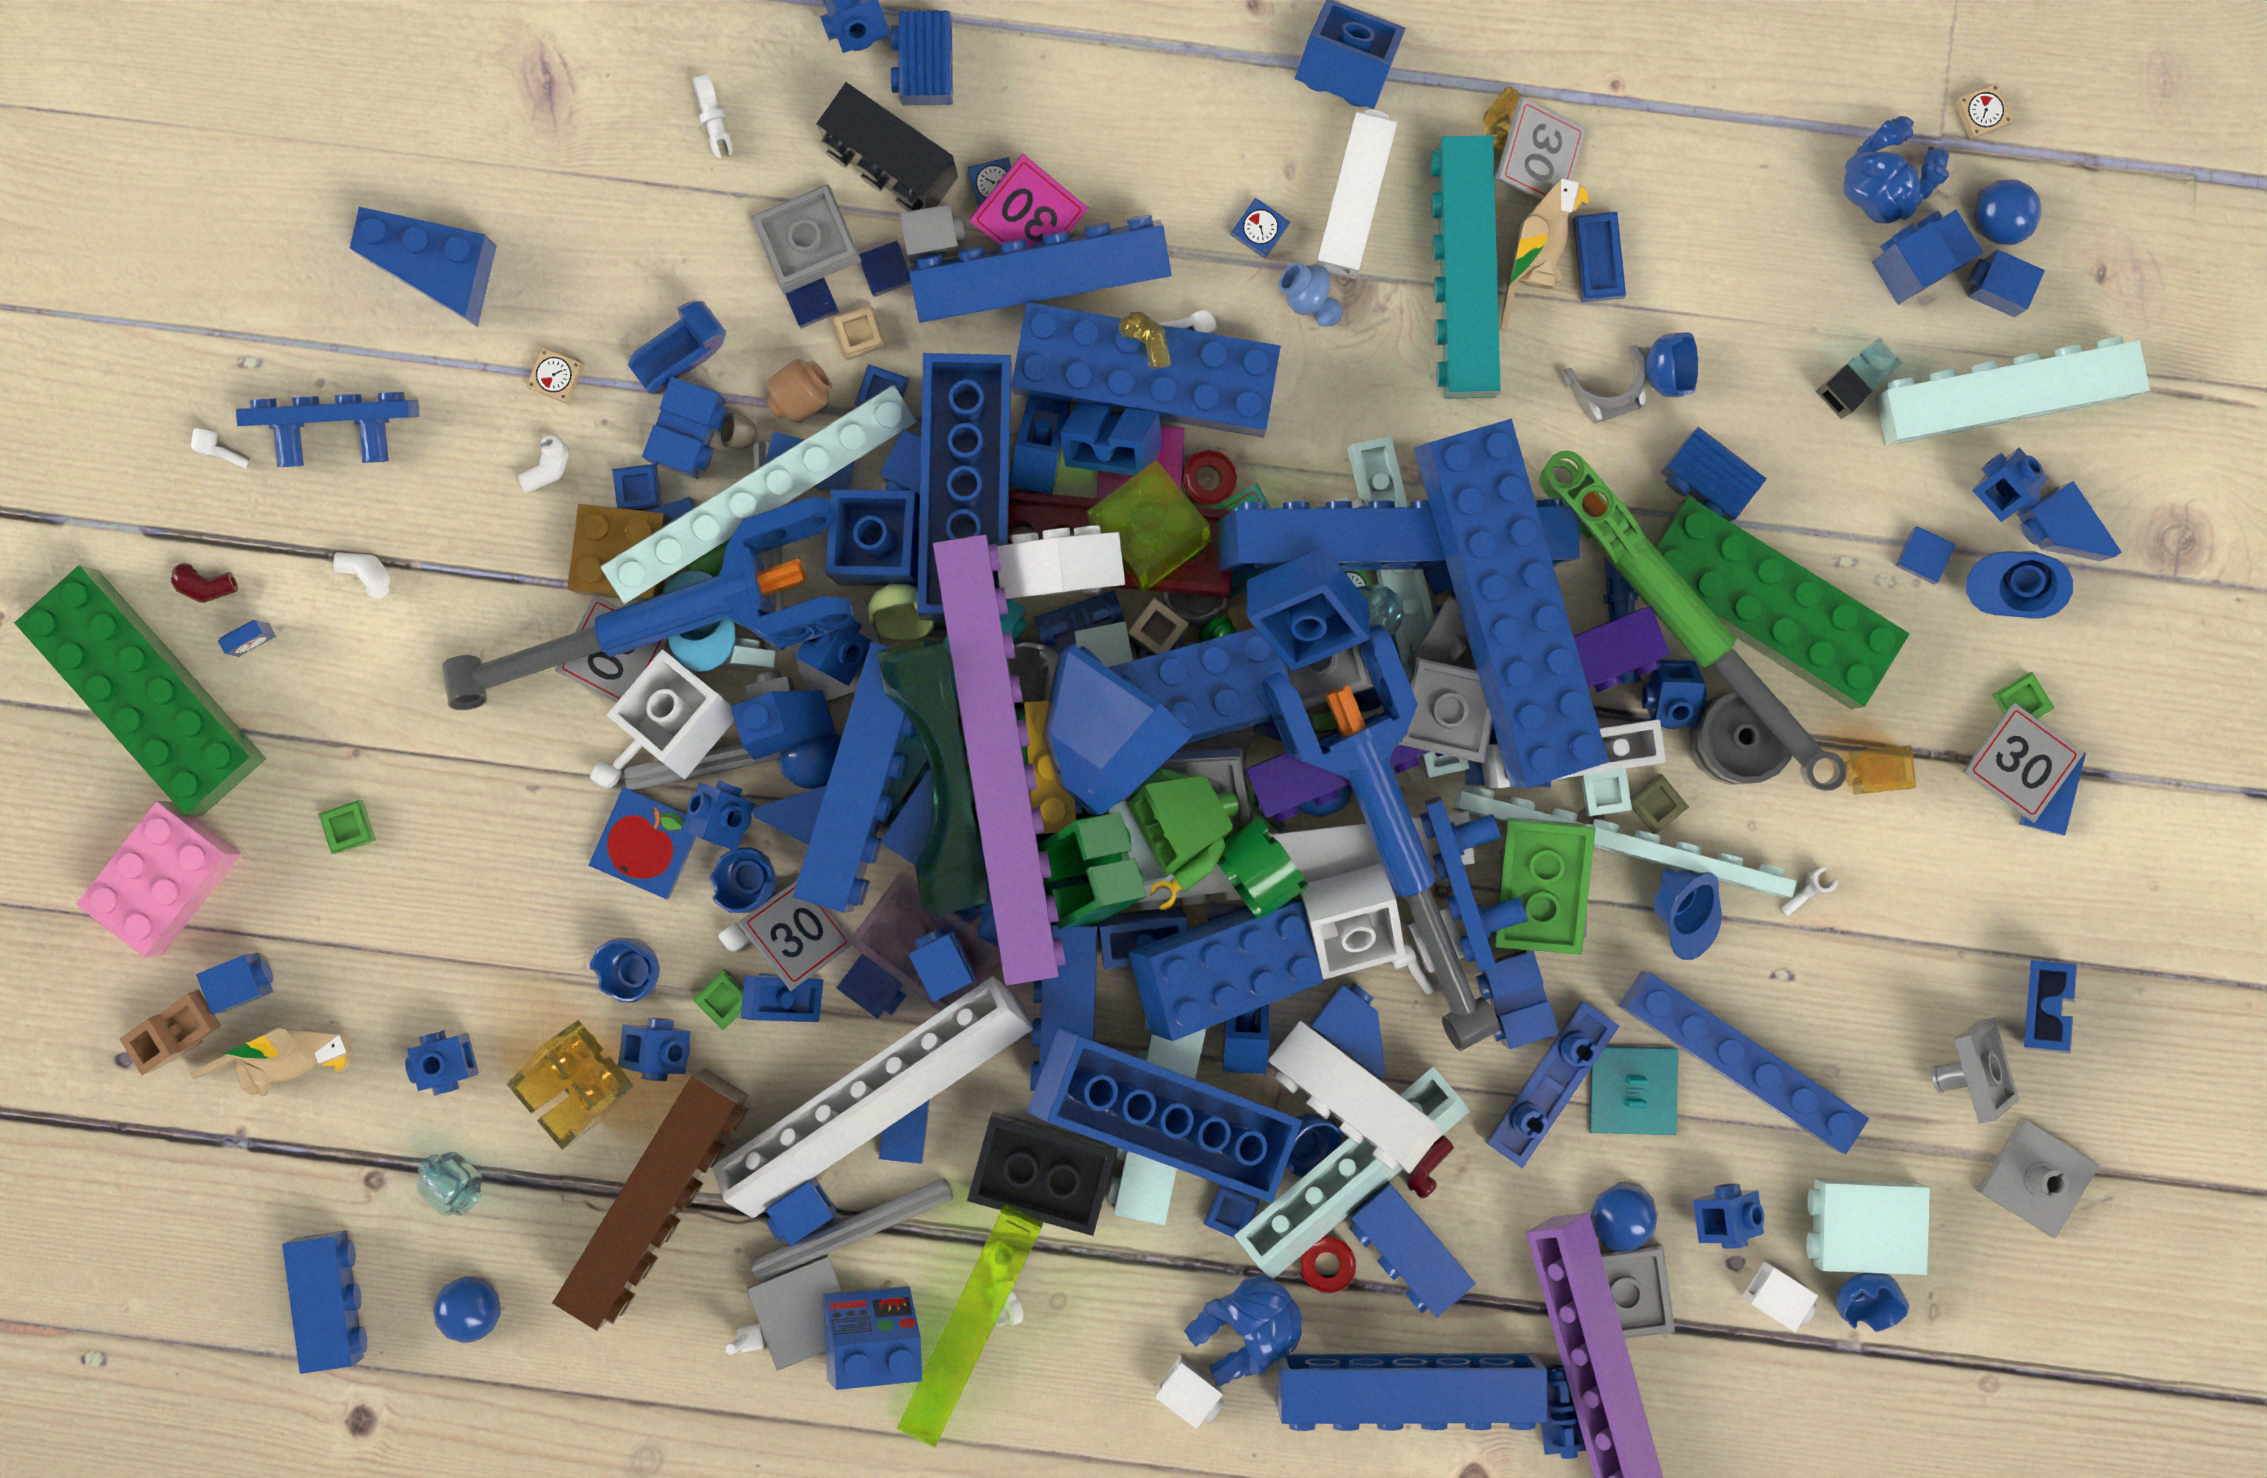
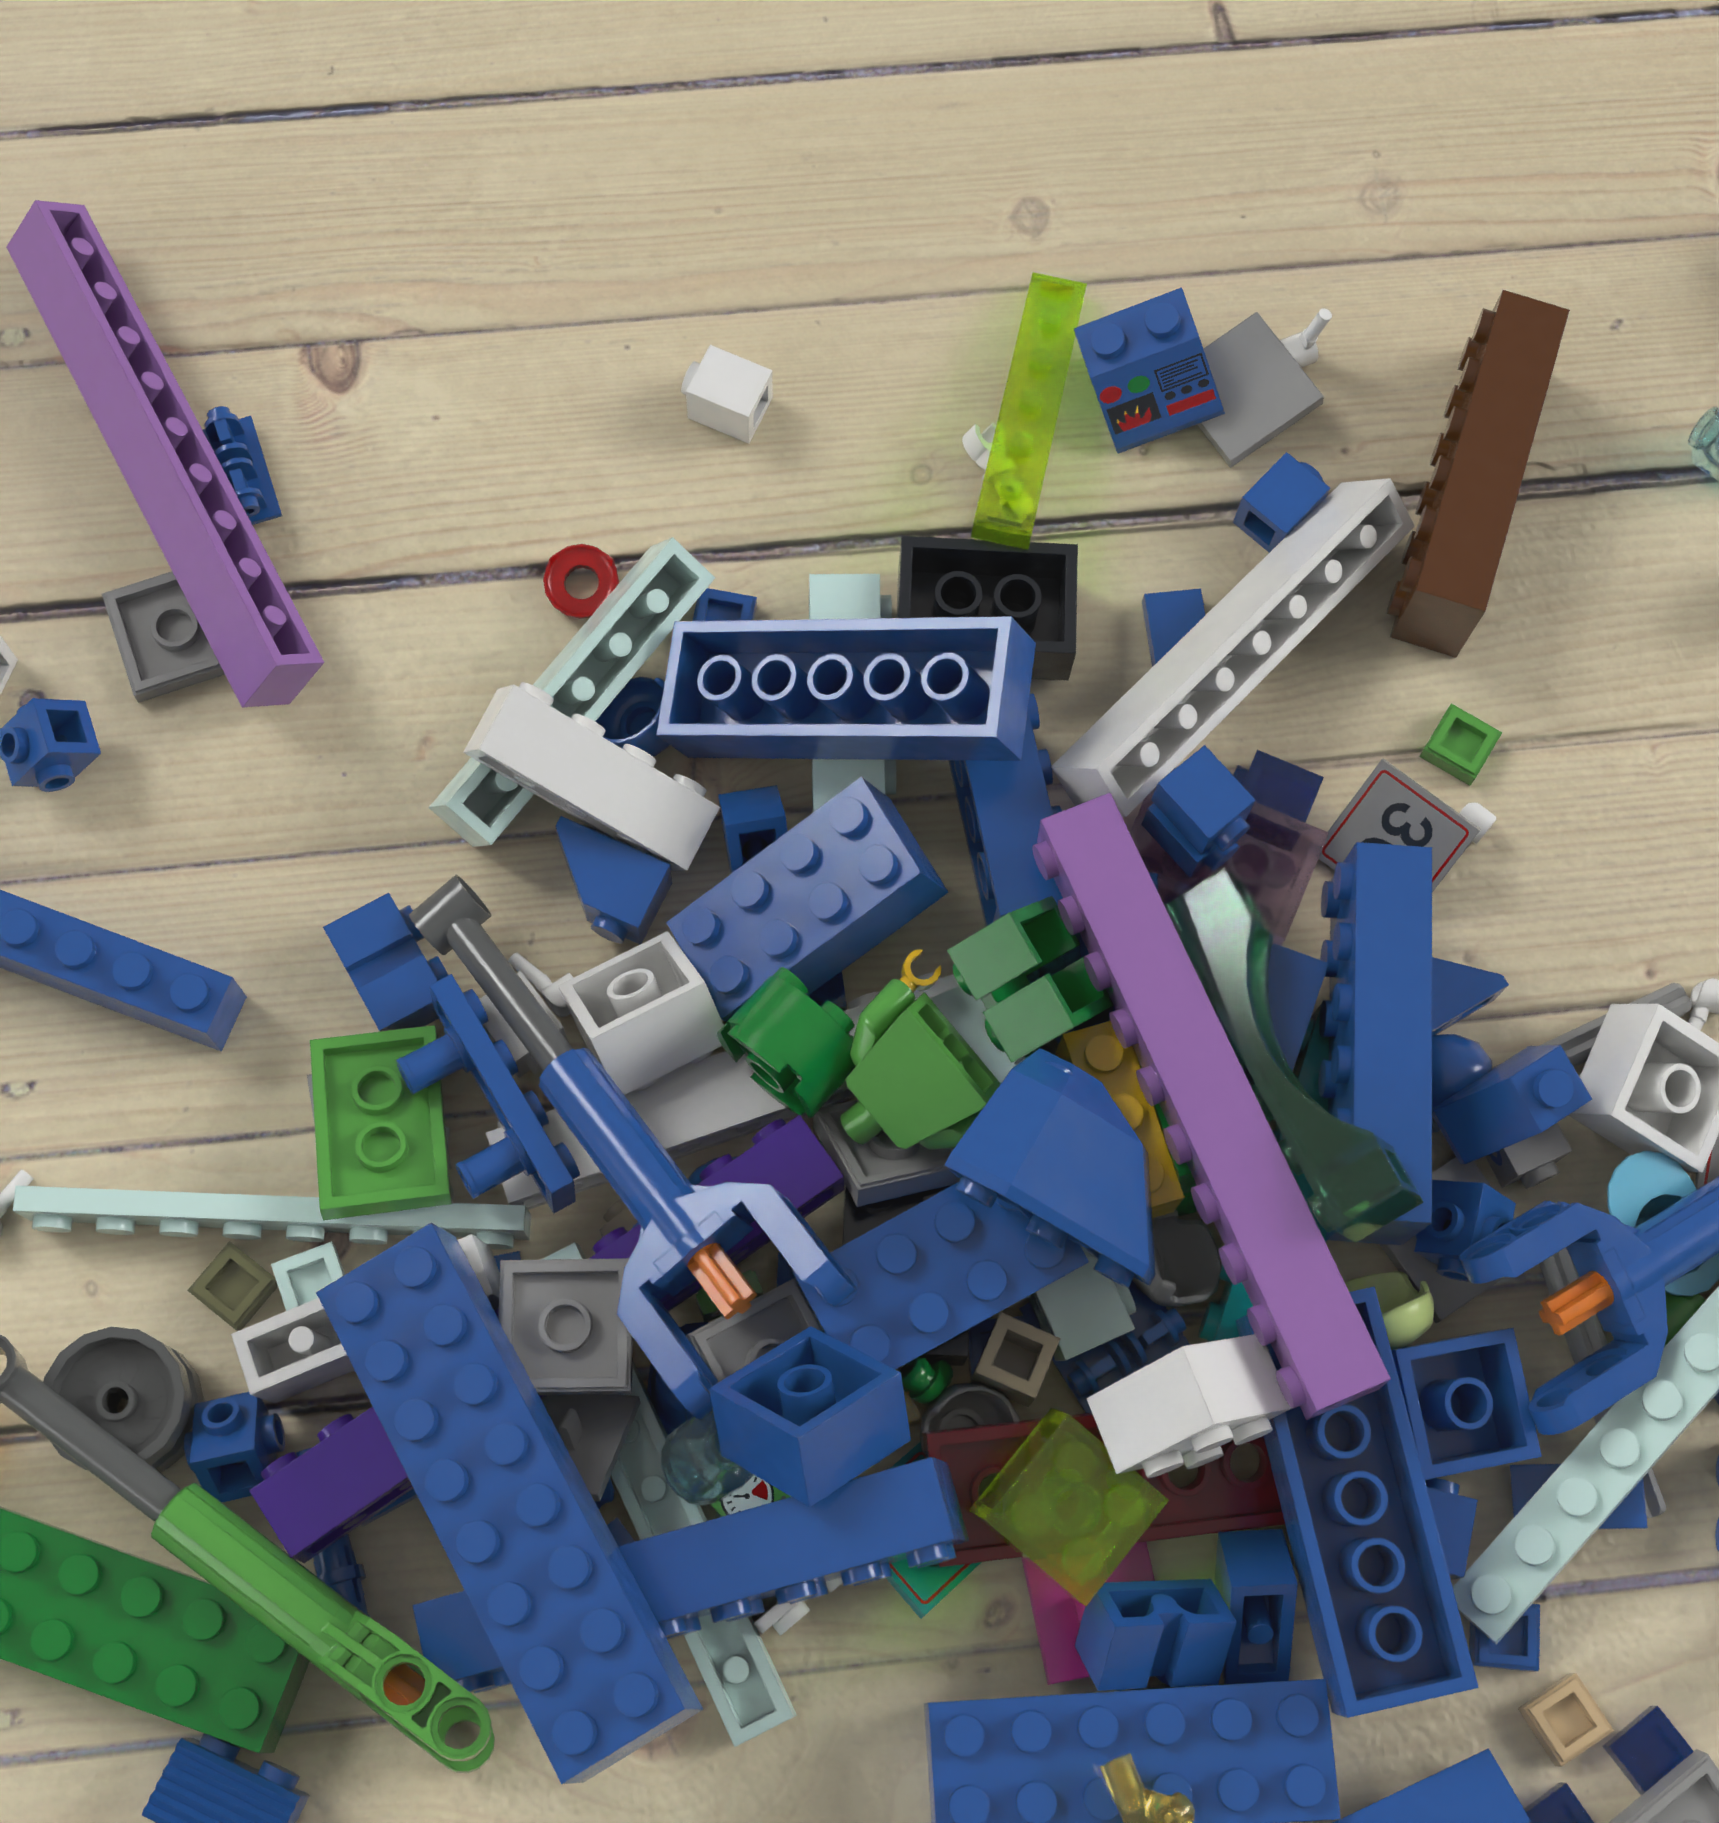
camera: 160 degrees right, 15 degrees down
(467, 1309) = (1658, 311): blue hair -> none
(571, 1064) = (1633, 617): clear yellow piece -> none
(626, 969) = (1602, 749): blue hair -> none
(643, 844) = (1628, 920): tile -> none
(654, 1049) = (1533, 655): blue brick -> none
(718, 814) = (1549, 969): blue brick -> none
(738, 431) = (1692, 1521): dark tan hinge -> none
(743, 880) = (1486, 893): blue hair -> none
(747, 654) = (1586, 1190): light aqua plate -> none
(771, 1000) = (1408, 741): blue slope -> none
(798, 390) = (1628, 1603): medium nougat head -> none
(852, 1229) = (1204, 502): light grey axle -> none
(1135, 929) = (934, 932): blue brick -> none
(1223, 467) = (963, 1618): red piece -> none
(1262, 1316) = (658, 490): blue hair -> none
(1410, 1251) = (472, 615): blue brick -> none
(1411, 1390) = (441, 444): blue brick -> none
(1419, 1177) = (472, 706): dark red arm -> none
(1552, 1084) = (320, 869): blue plate -> none
(1624, 1217) = (192, 721): blue hair -> none
(1634, 1091) = (206, 888): teal piece -> none
(1689, 910) = (165, 1139): blue piece -> none

